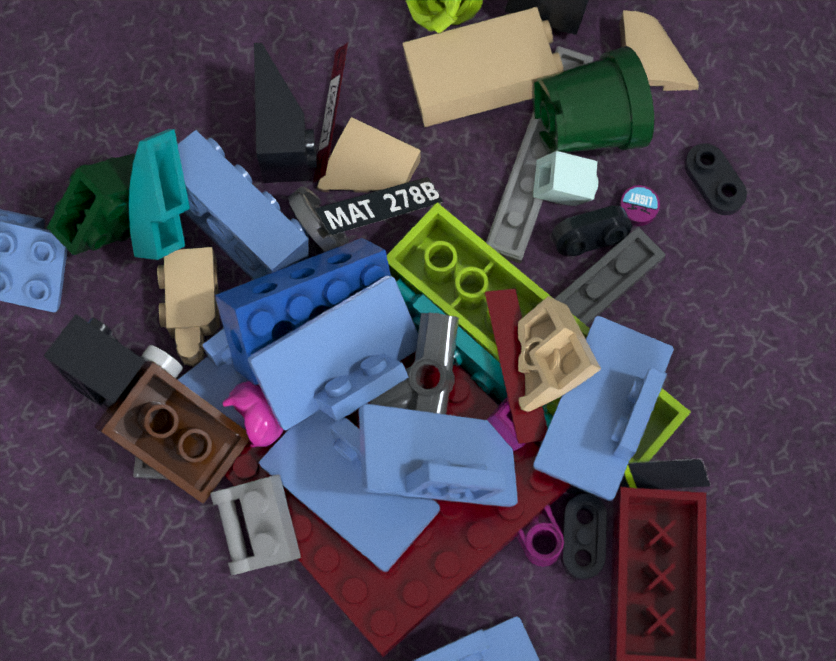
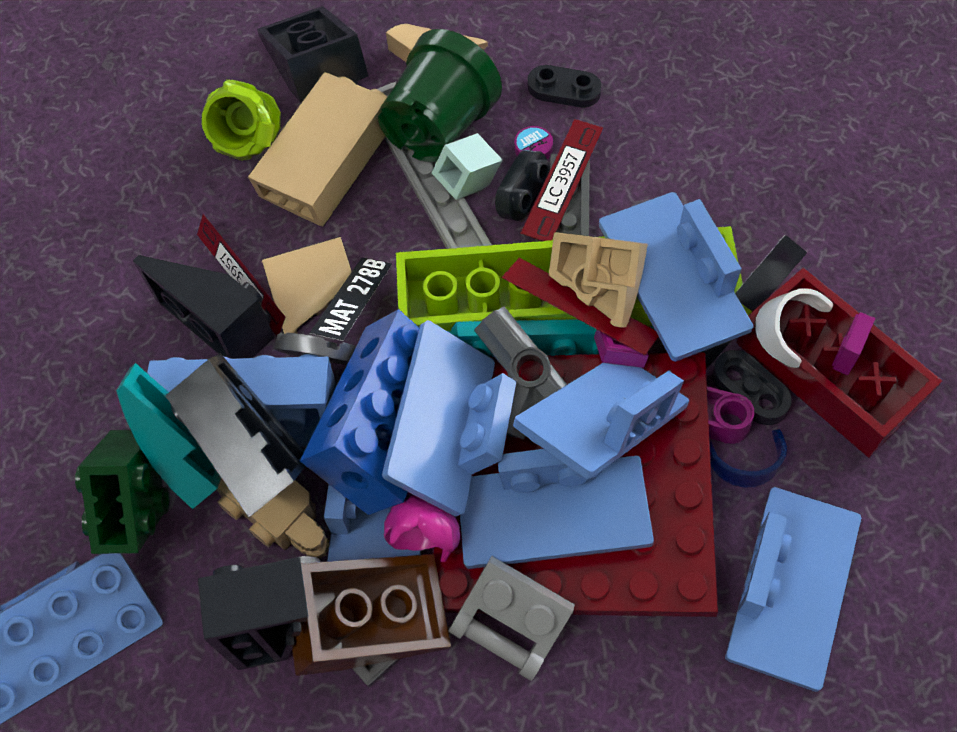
camera: 40 degrees left, 10 degrees down
(194, 240) = (237, 433): none -> wedge
(516, 601) = (749, 478): none -> clear blue helmet
(623, 255) = (562, 181): none -> sticker
(635, 501) = (768, 323): none -> white helmet
(665, 580) = (853, 343): none -> magenta tile

